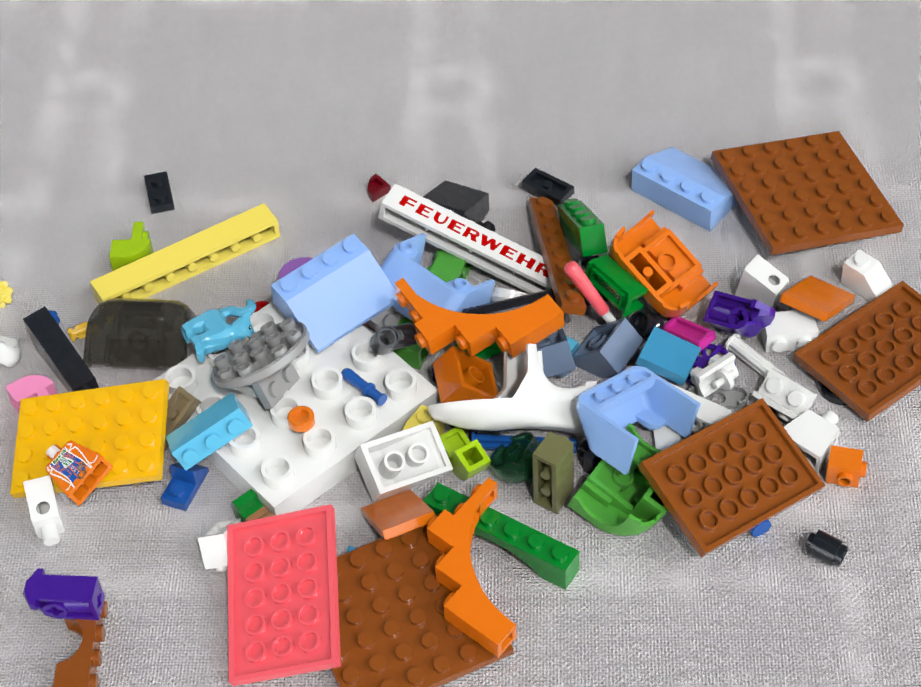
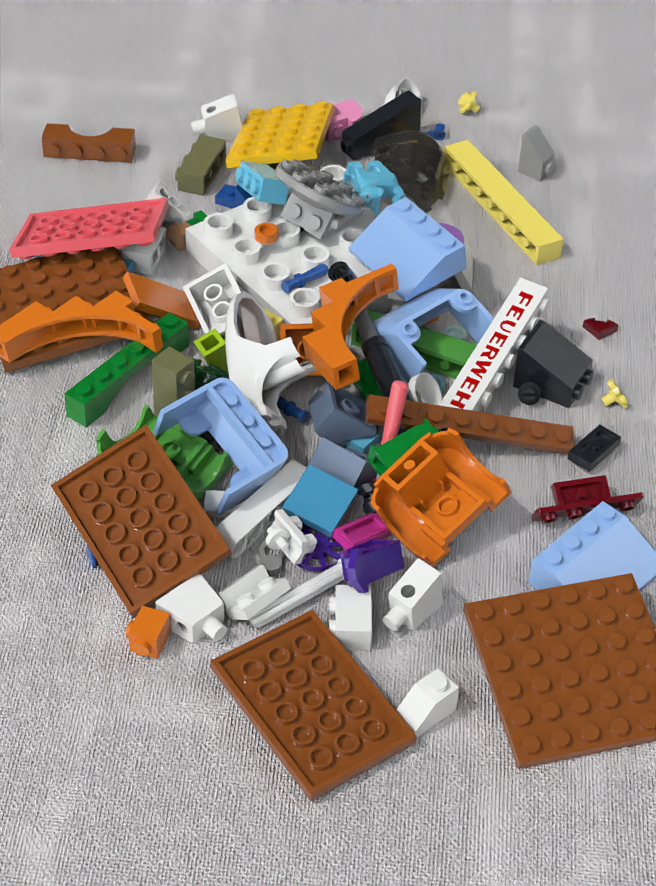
camera: 90 degrees right, 5 degrees down
(64, 595) = (118, 116): dark purple piece -> none
(76, 469) = (240, 119): orange torso -> none
(112, 227) = (536, 155): none -> light grey slope
(125, 523) = (201, 165): none -> olive brick
(129, 250) = (517, 172): lime brick -> none
(159, 192) = (595, 191): black plate -> none
(477, 173) = (614, 395): none -> light yellow plant
(582, 227) = (505, 442): green brick -> none
(617, 191) = (581, 496): none -> dark red bracket
(817, 298) = (390, 642): orange tile -> none
(826, 548) = (49, 600): black brick -> none

